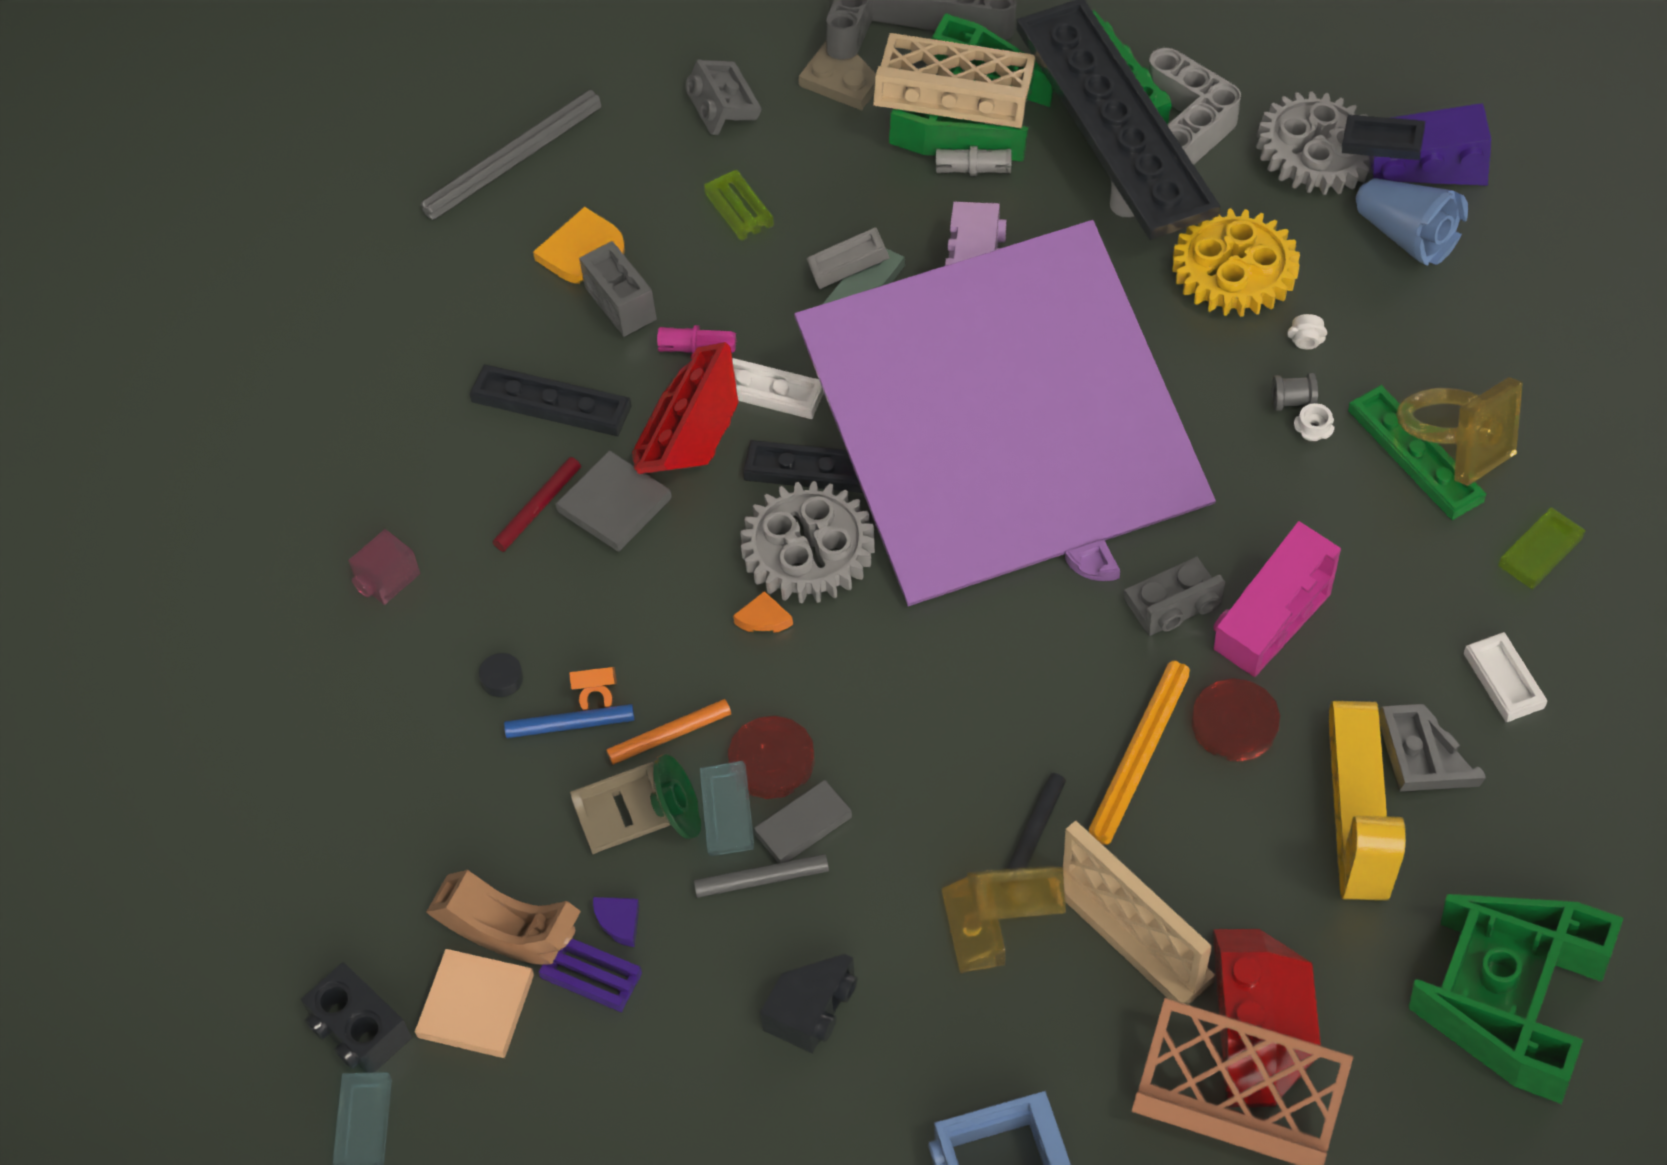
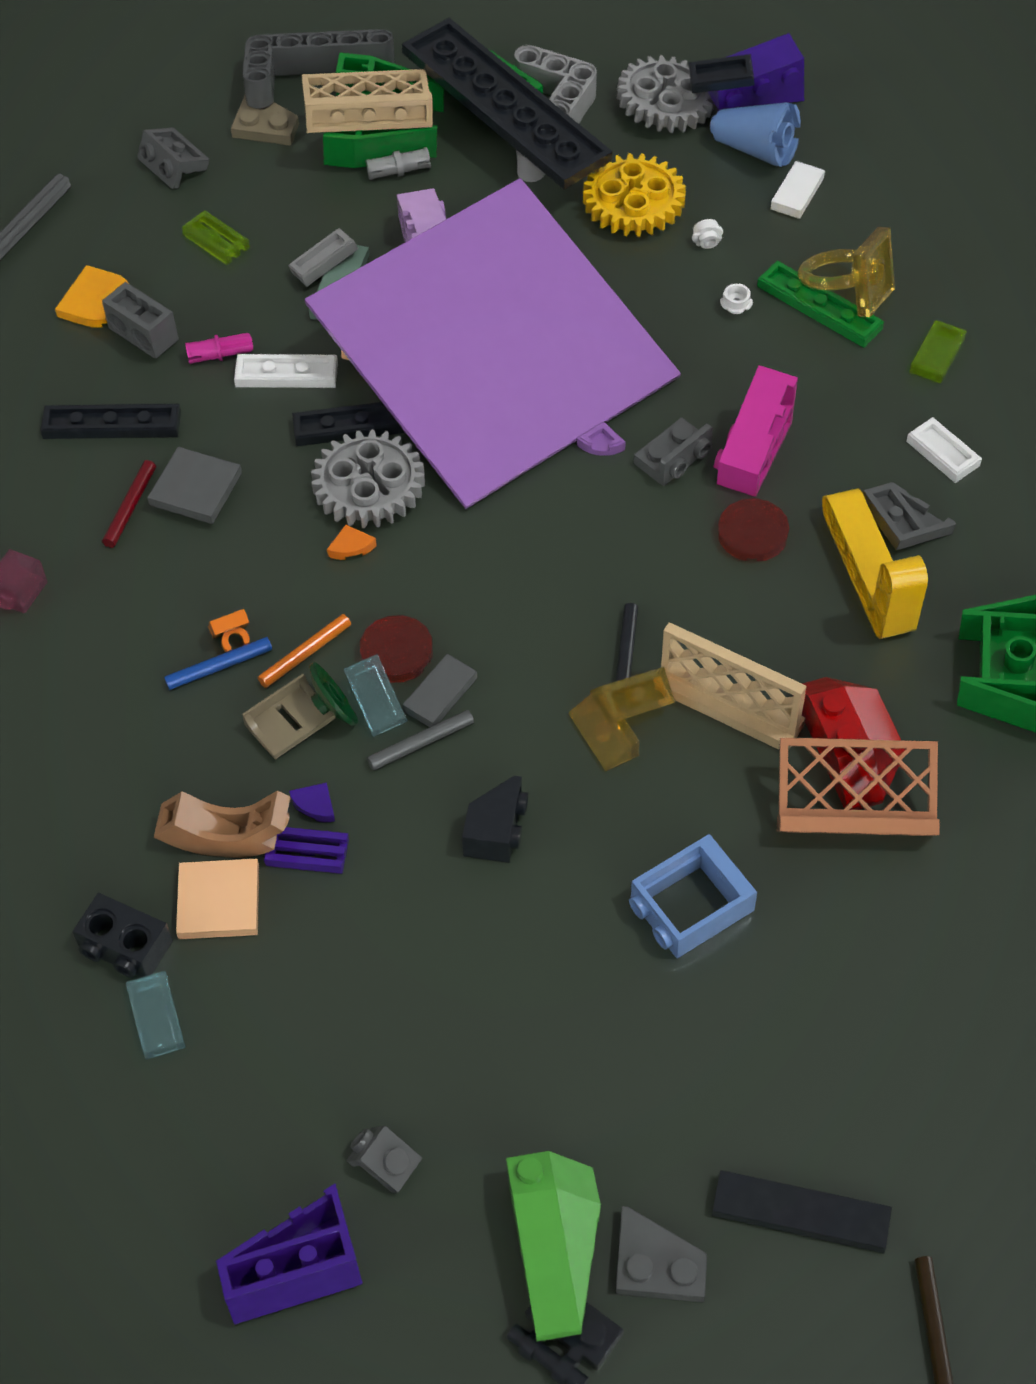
camera: 20 degrees left, 0 degrees up
(501, 674) = (147, 642): black tile -> none
(690, 413) = (235, 402): red wedge -> none
(1139, 752) = (689, 564): light orange axle -> none
(1294, 391) = (712, 279): dark grey bush -> none
(1438, 299) = (797, 189): none -> white tile

